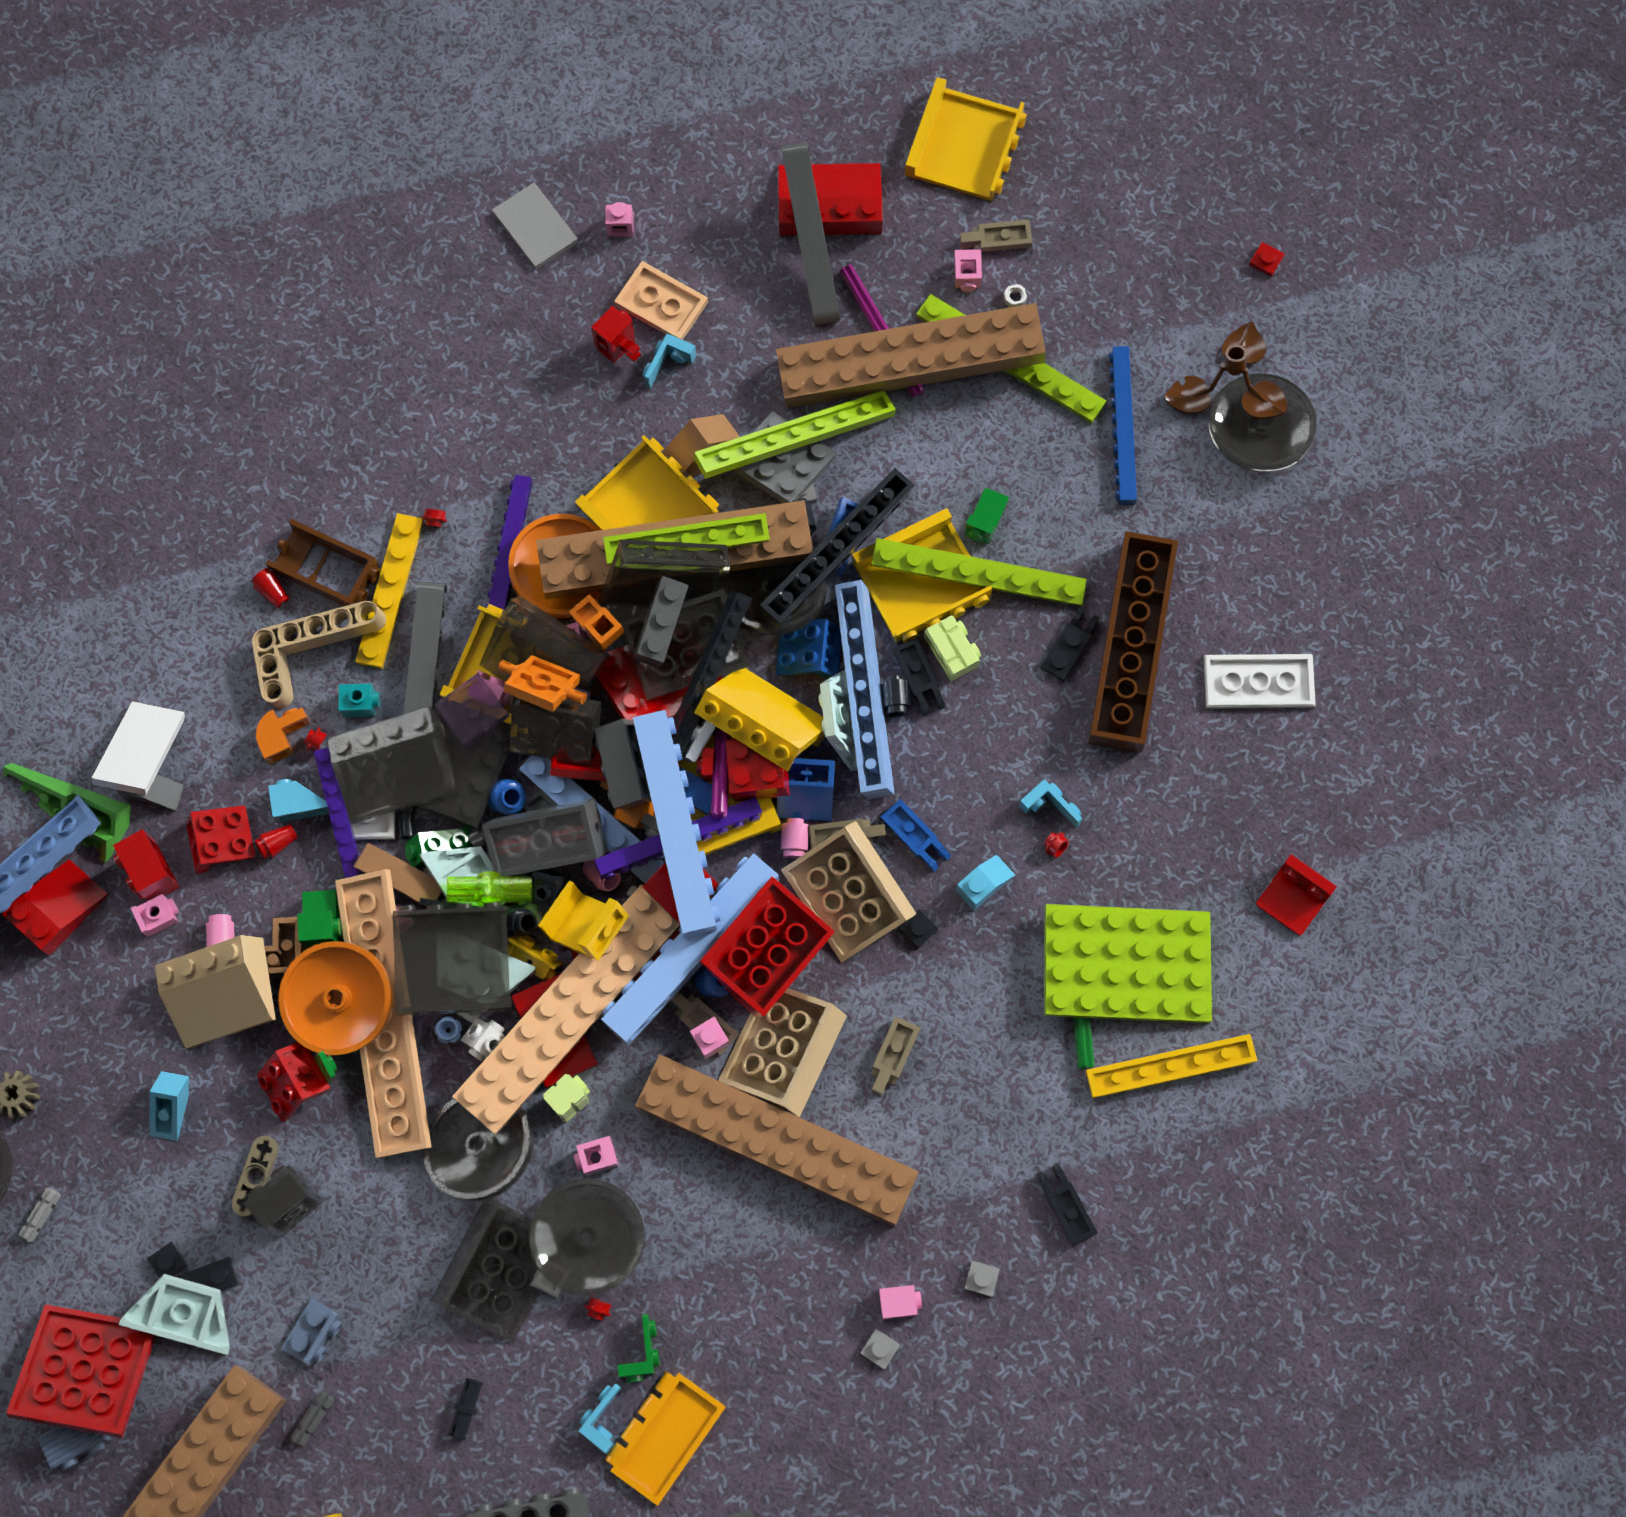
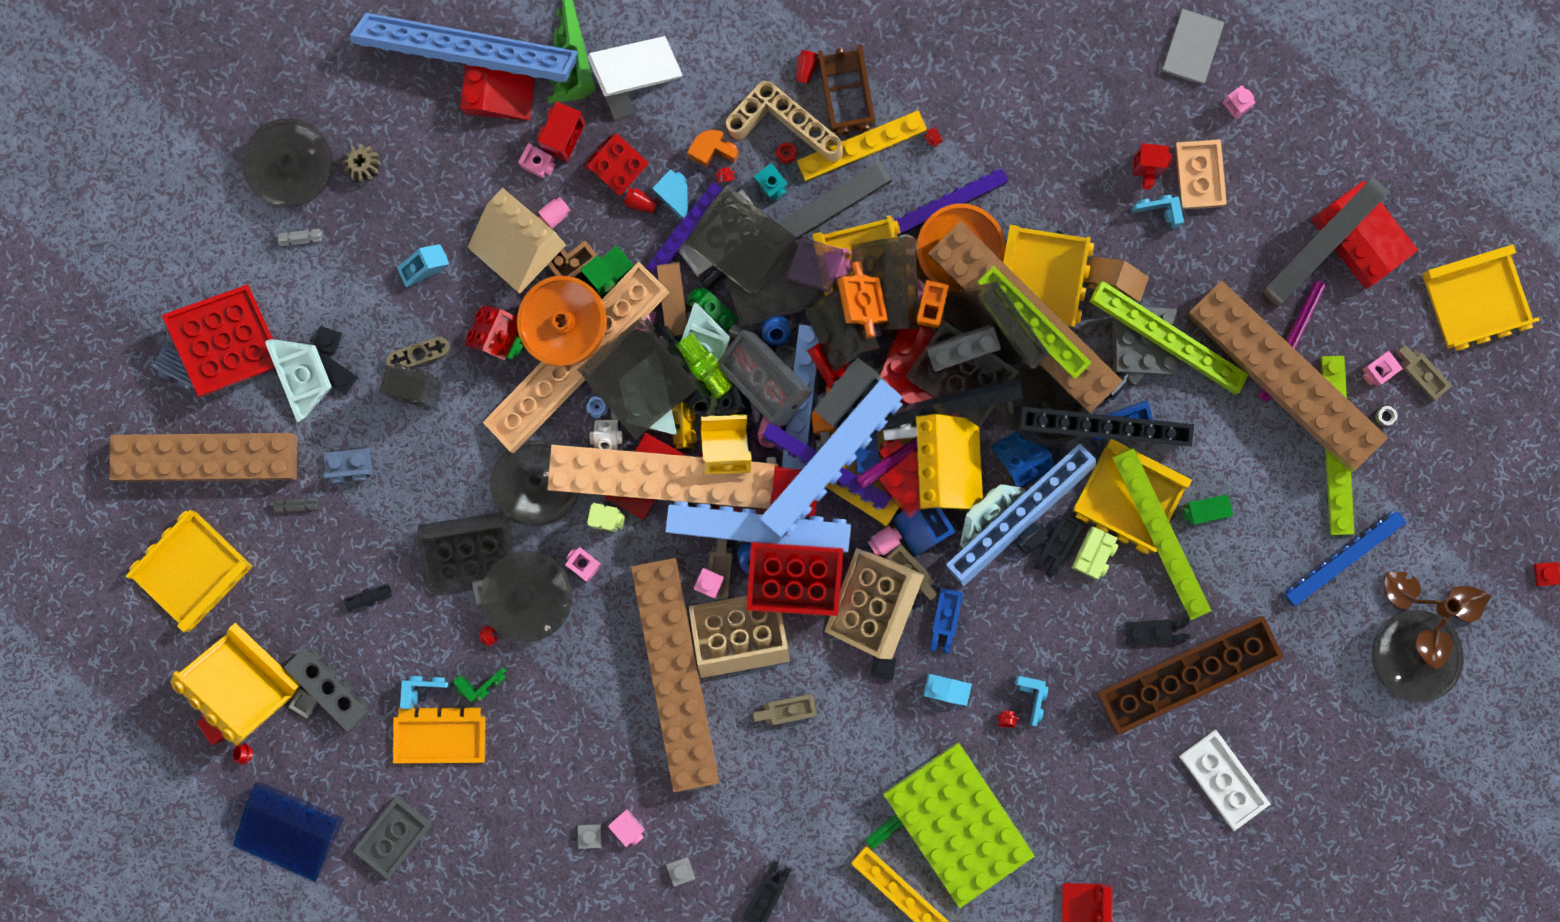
camera: 55 degrees right, 10 degrees up
(335, 661) = (790, 148): none -> red plate

